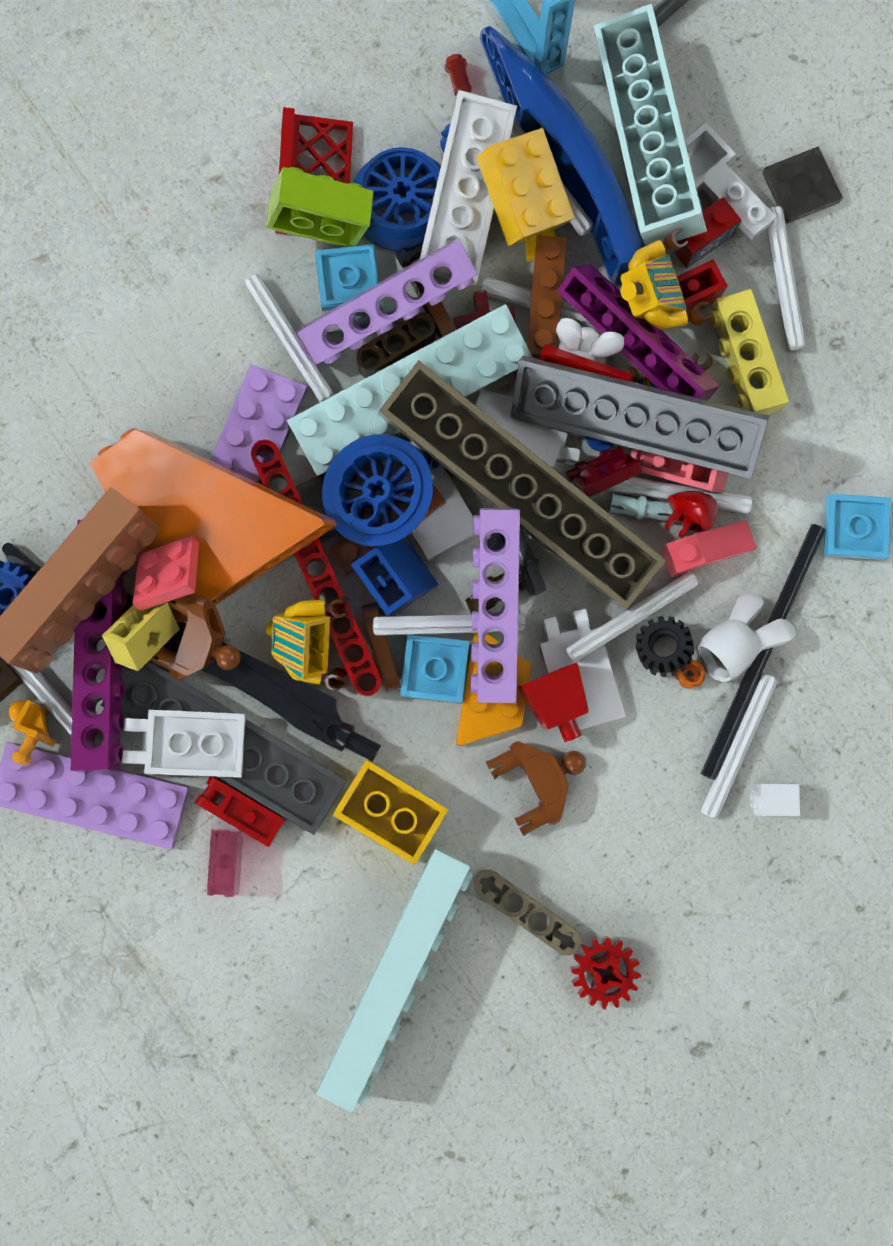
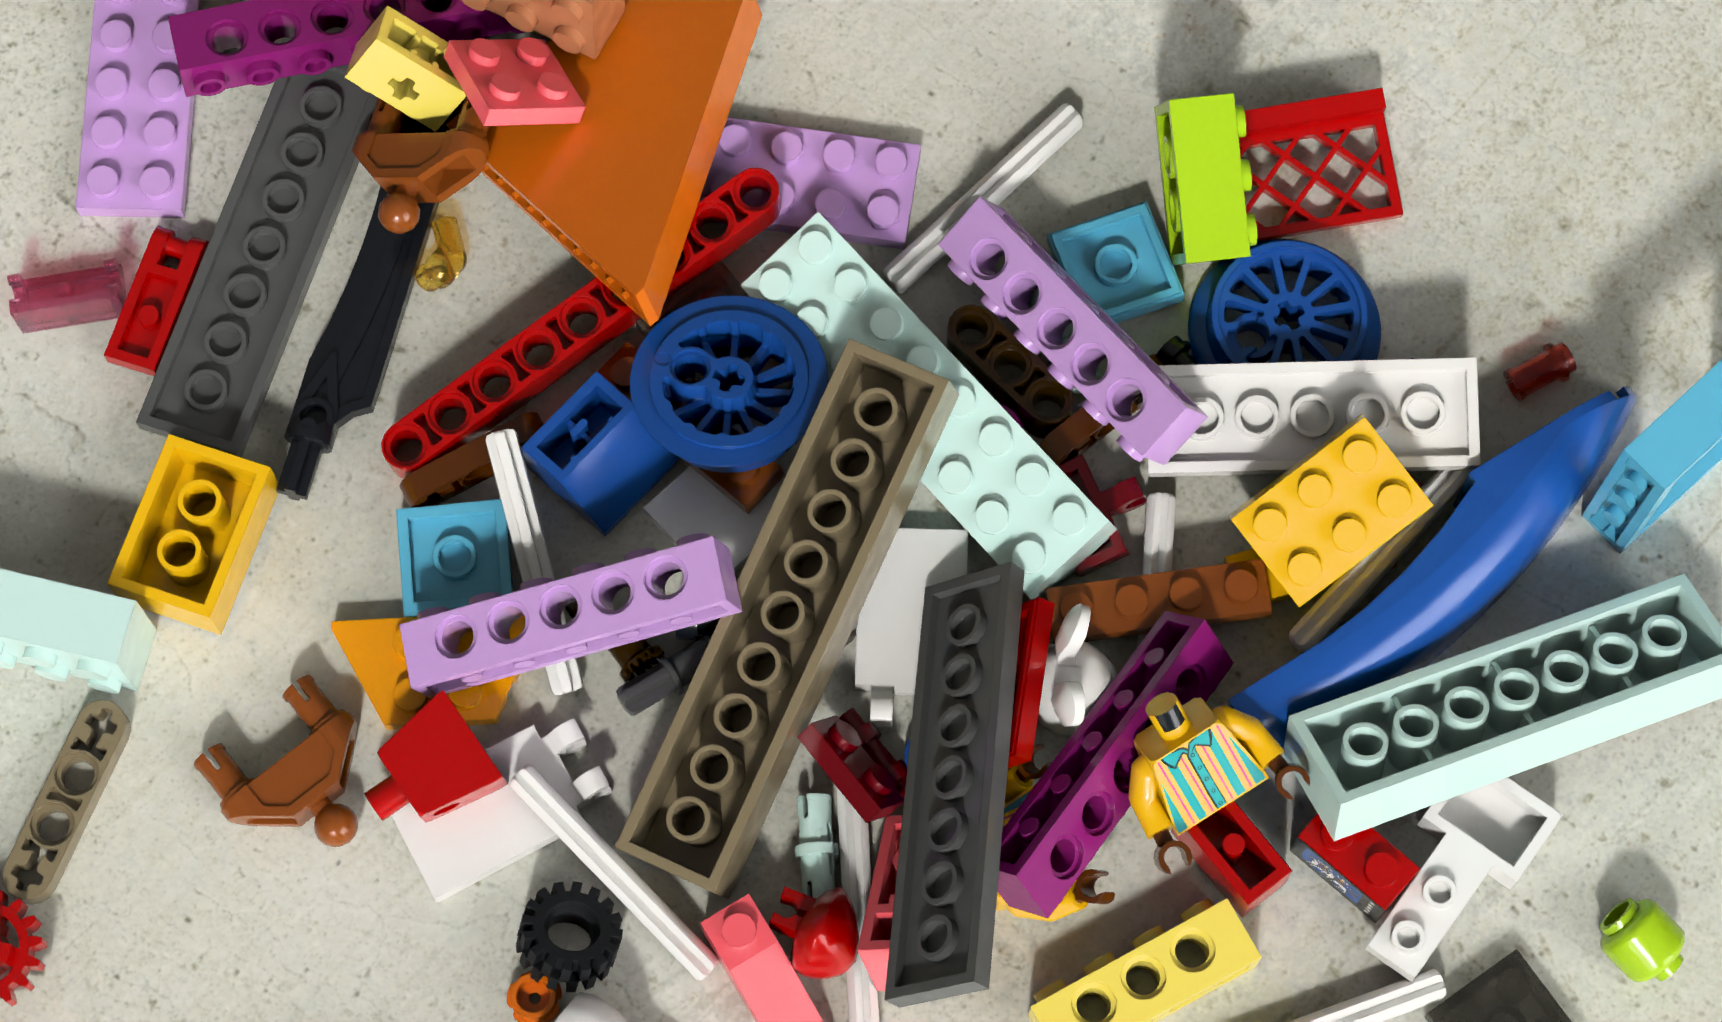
camera: 80 degrees right, 10 degrees down
(189, 743) = (250, 192): white tile -> none
(254, 639) = (448, 258): none -> clear yellow arm
(302, 641) = (450, 328): yellow torso -> none
(774, 104) = (1642, 940): none -> lime head

